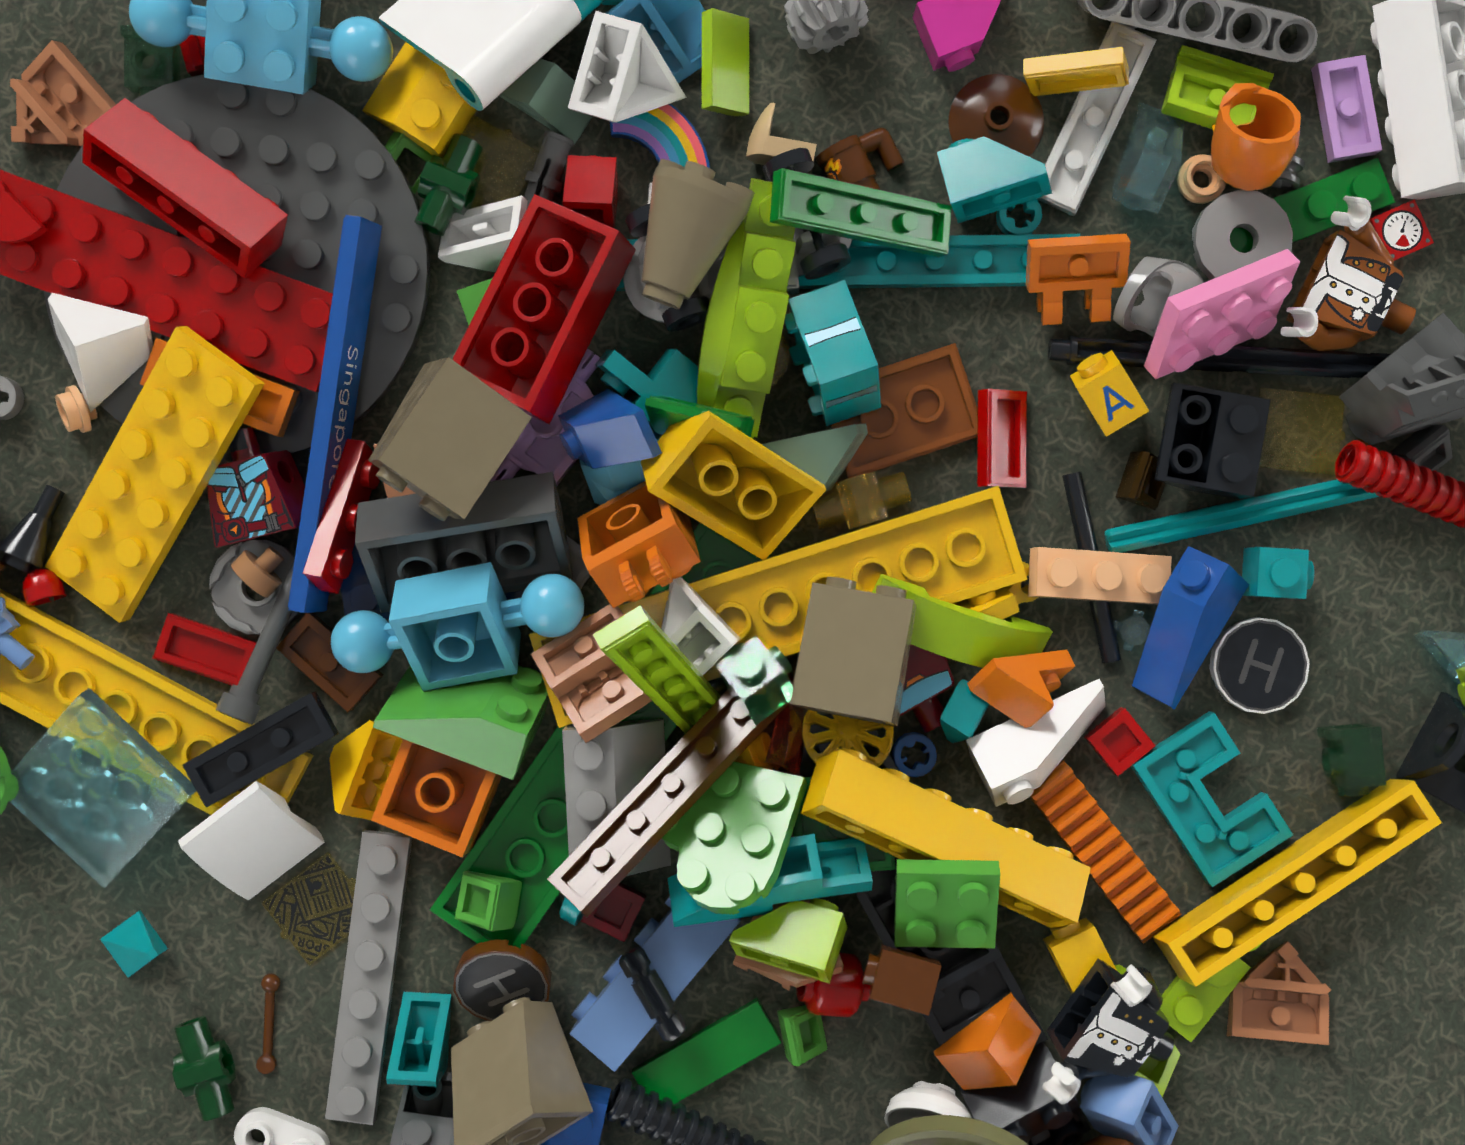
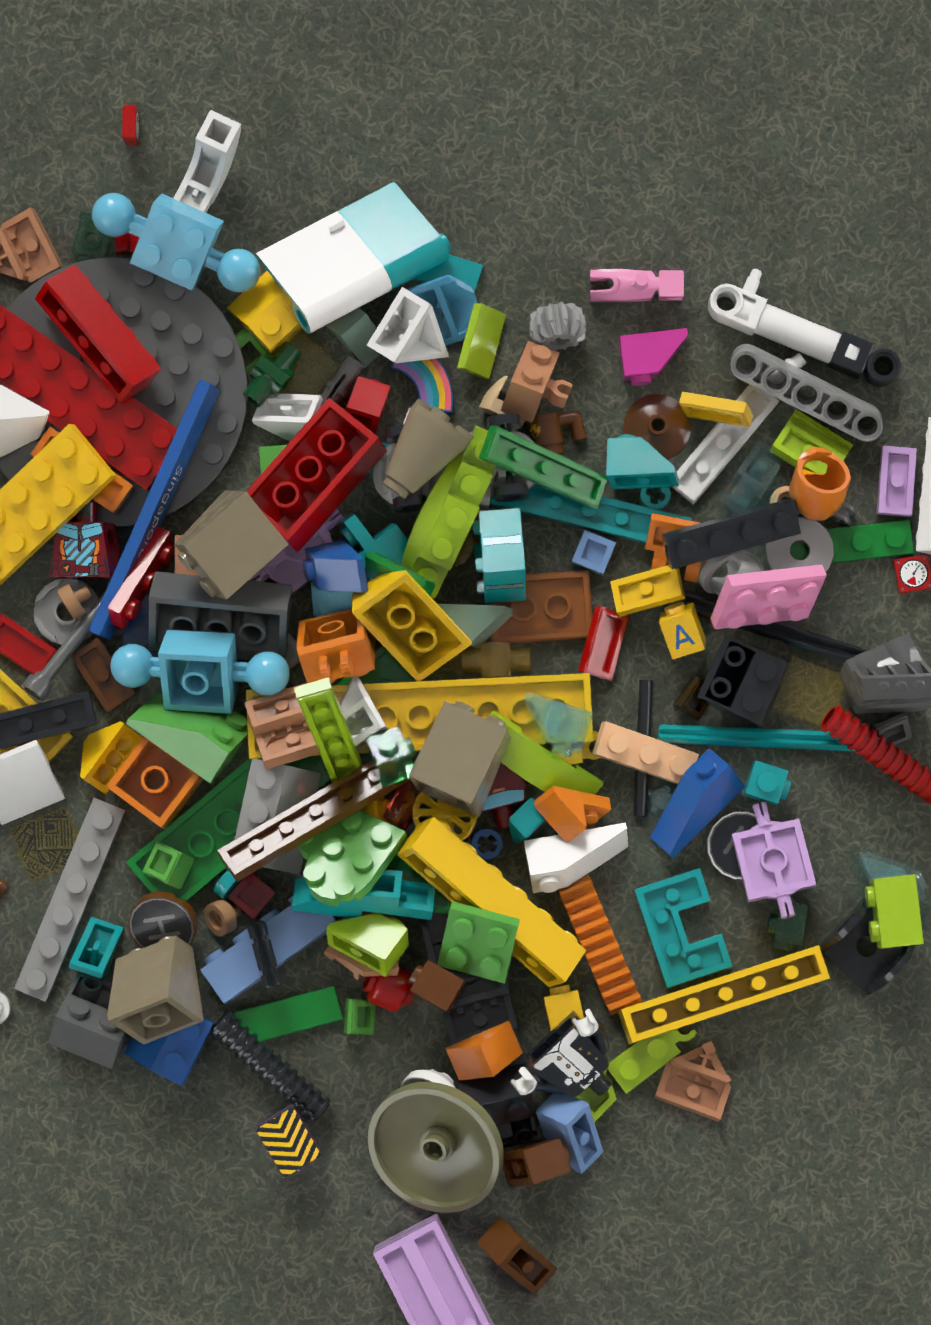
camera: 15 degrees right, 5 degrees down
(580, 949) = (221, 917): none -> medium nougat tile
(815, 100) = (533, 382): none -> nougat brick
(956, 317) = (593, 552): none -> medium blue plate
(978, 569) = (559, 723): none -> clear light blue slope
(1047, 348) = (647, 590): none -> yellow plate
(1119, 741) = (630, 871): red plate -> none
(1149, 238) = (731, 533): none -> black plate
(1317, 678) = (773, 860): none -> lavender plate
(1349, 287) = (864, 603): torso -> none

